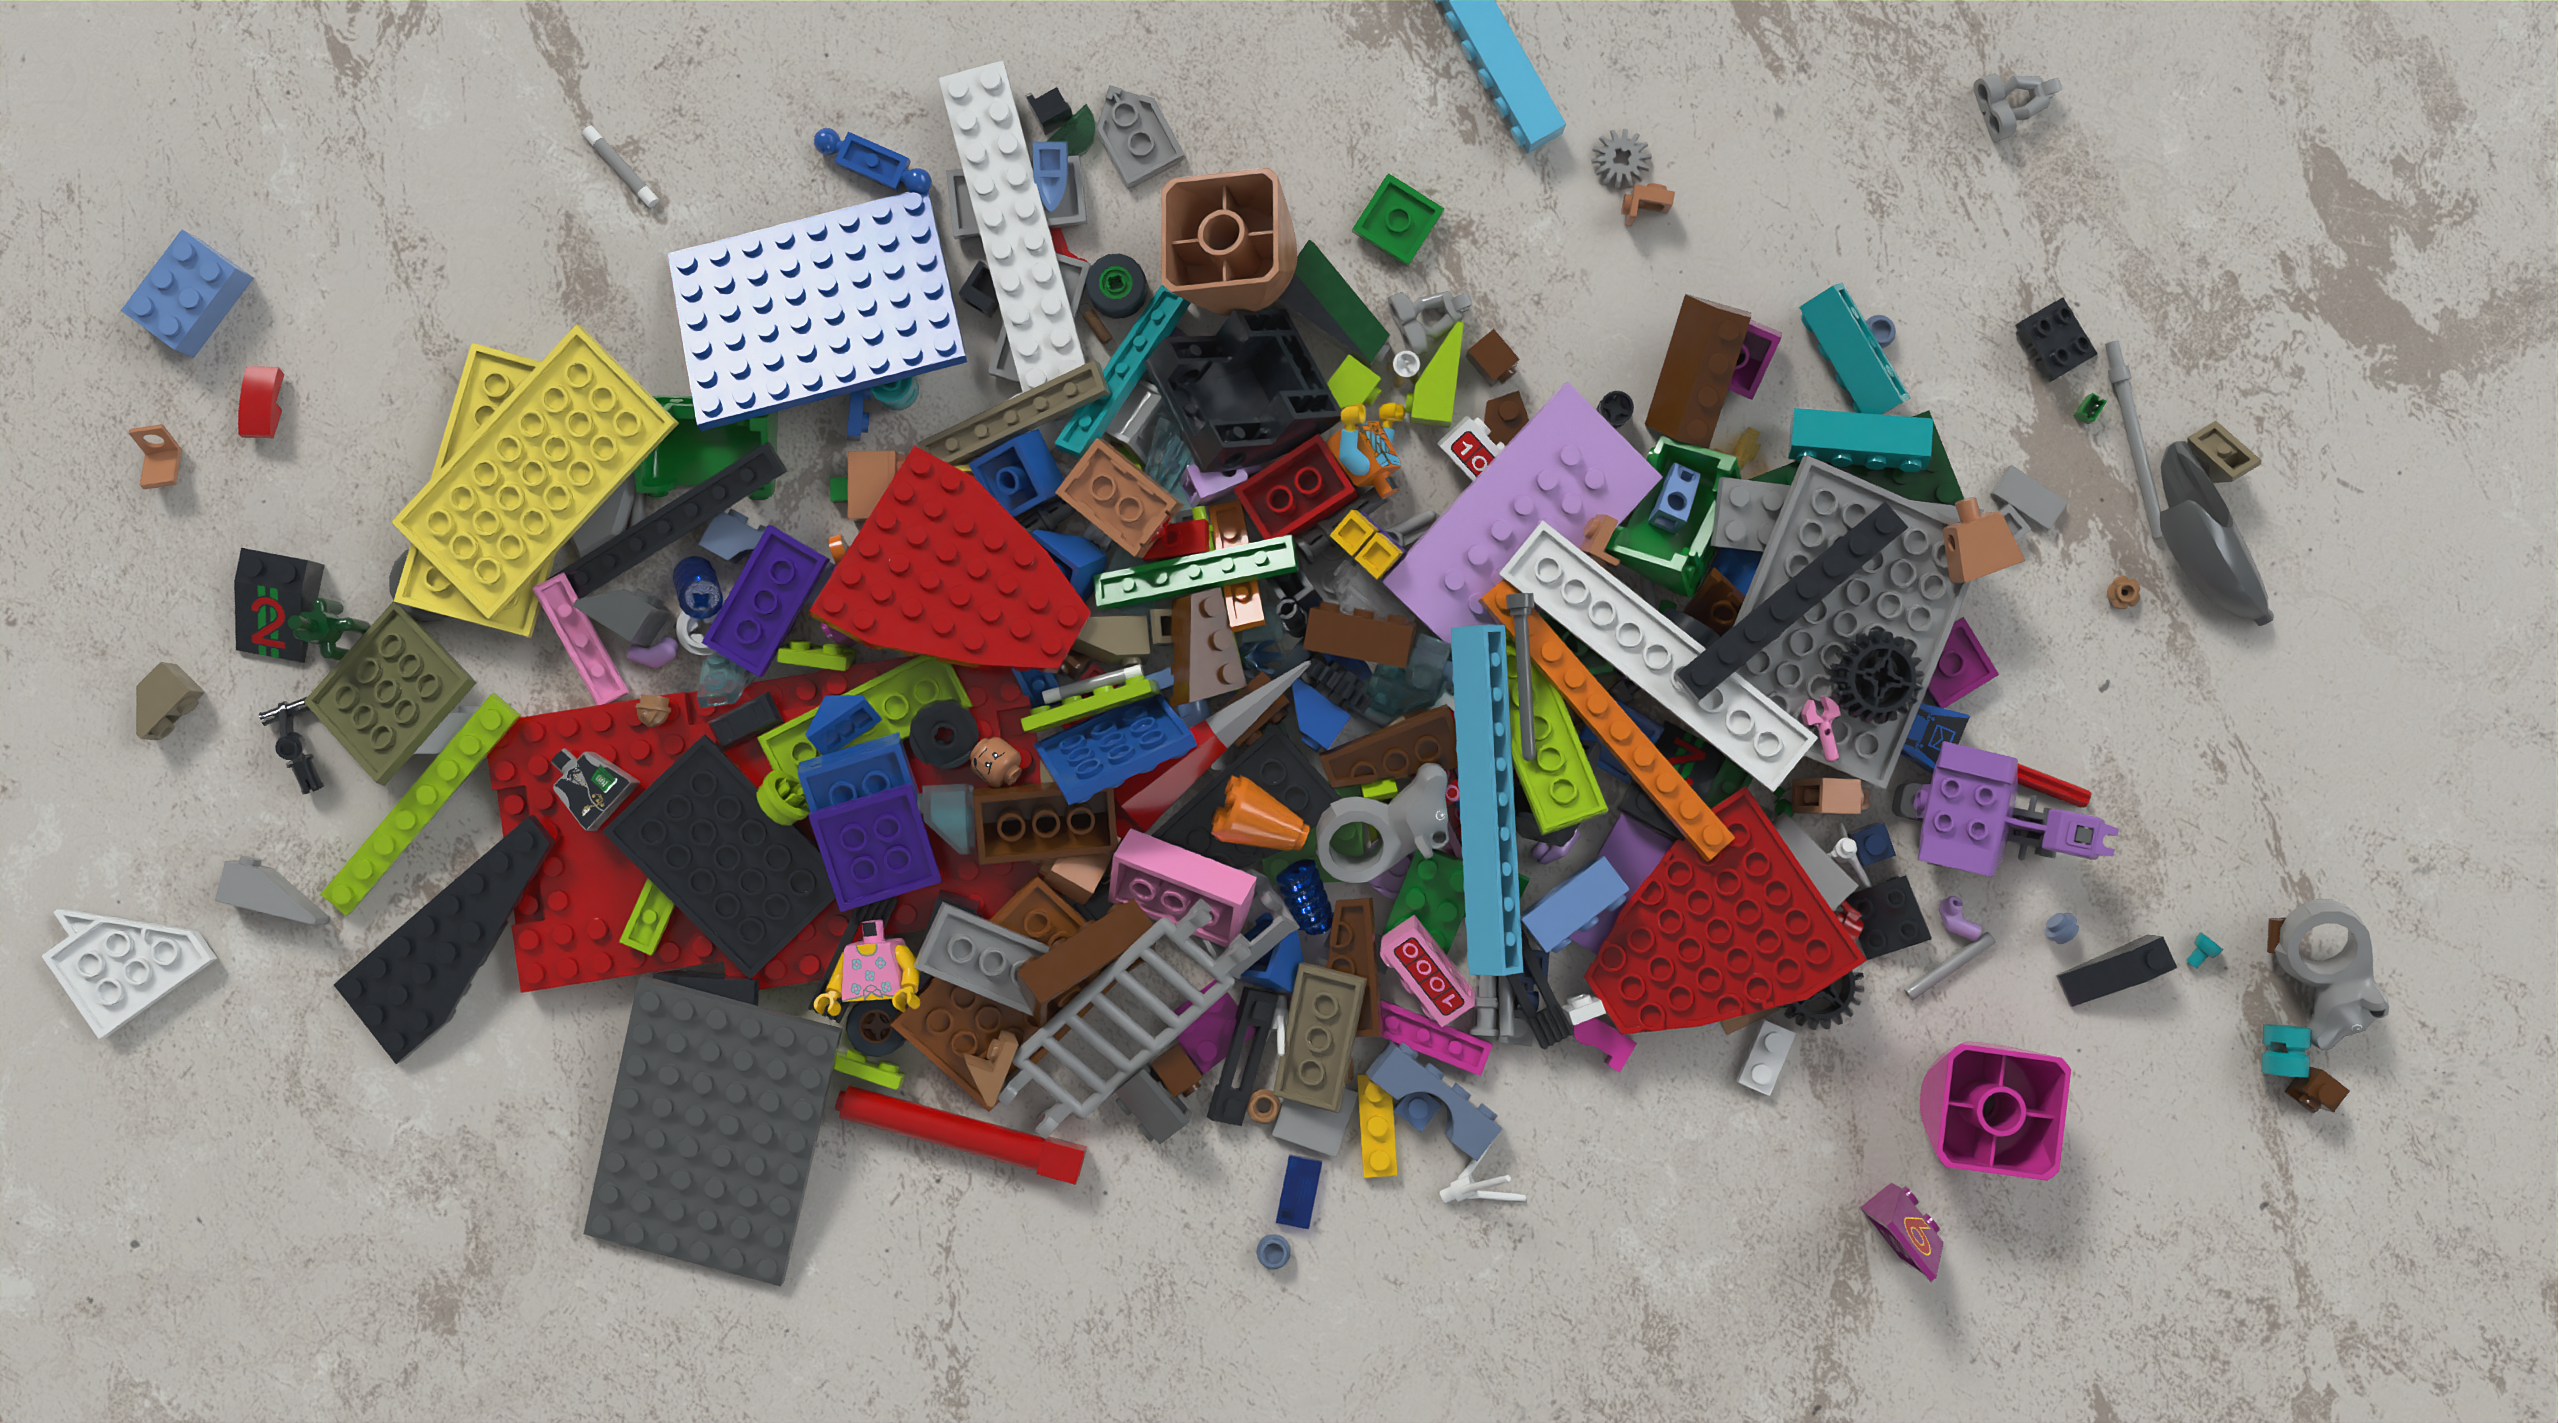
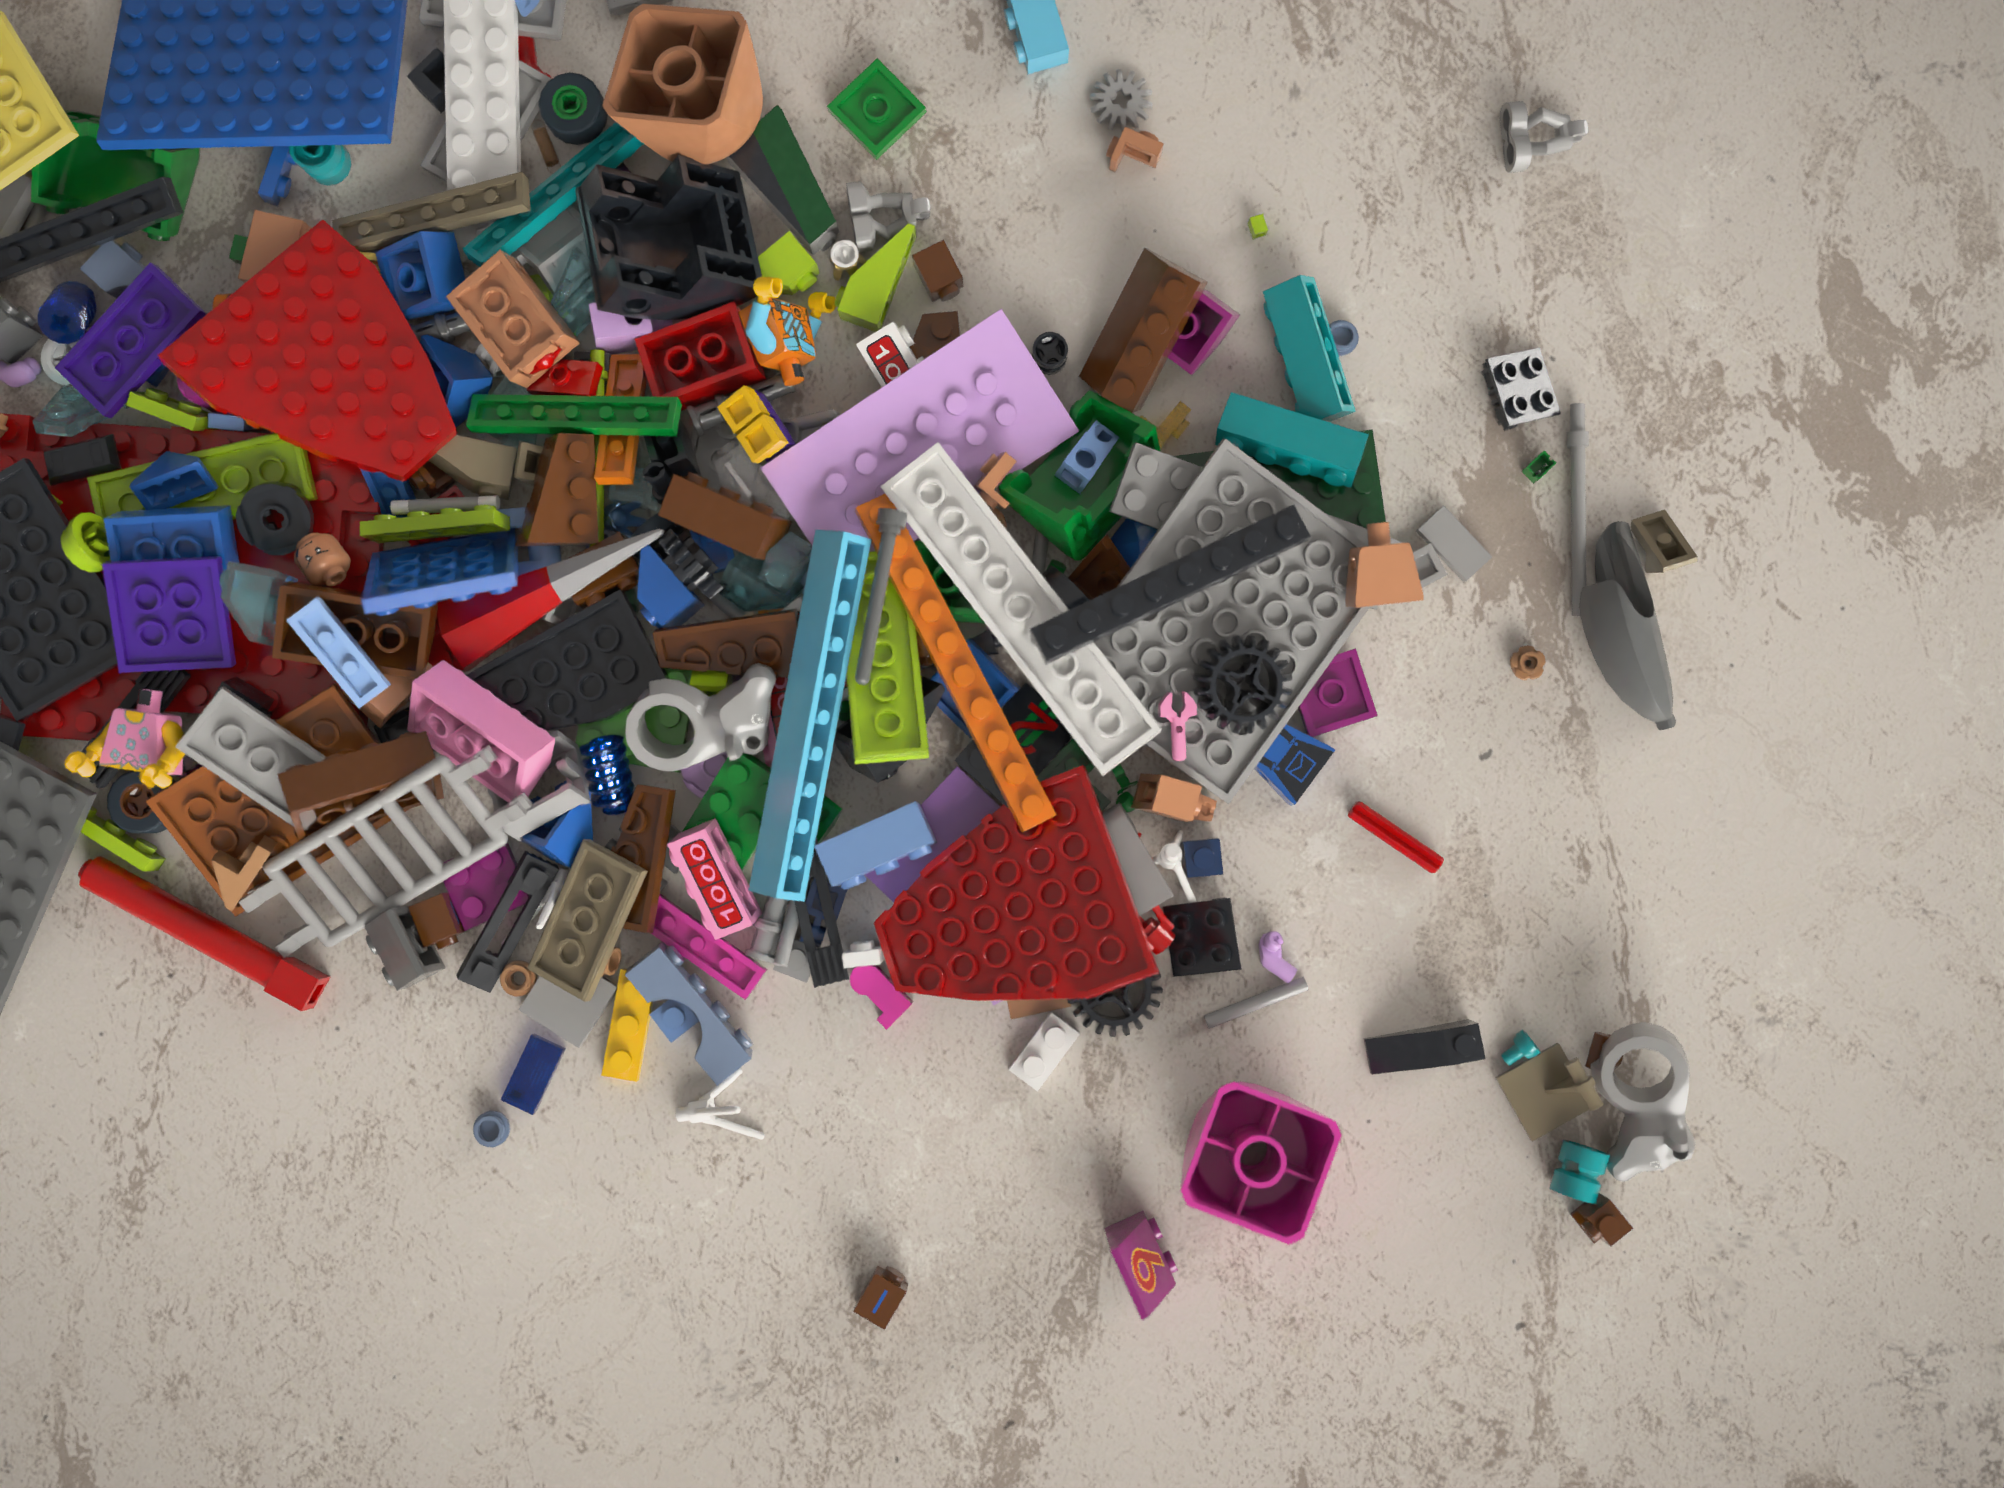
camera: 15 degrees right, 0 degrees up
(864, 654) = (227, 422): none -> medium blue plate
(1042, 845) = (338, 652): none -> light blue plate
(1257, 819) = (571, 679): orange cone -> none
(1549, 854) = (870, 790): lavender arm -> none
(1673, 1319) = (881, 1296): none -> reddish brown brick
(1776, 246) = (1257, 226): none -> lime piece
(1971, 812) = (1313, 849): medium lavender piece -> none
(2061, 928) = (1379, 990): sand blue plate -> none
(2240, 983) = (1548, 1091): none -> dark tan plate

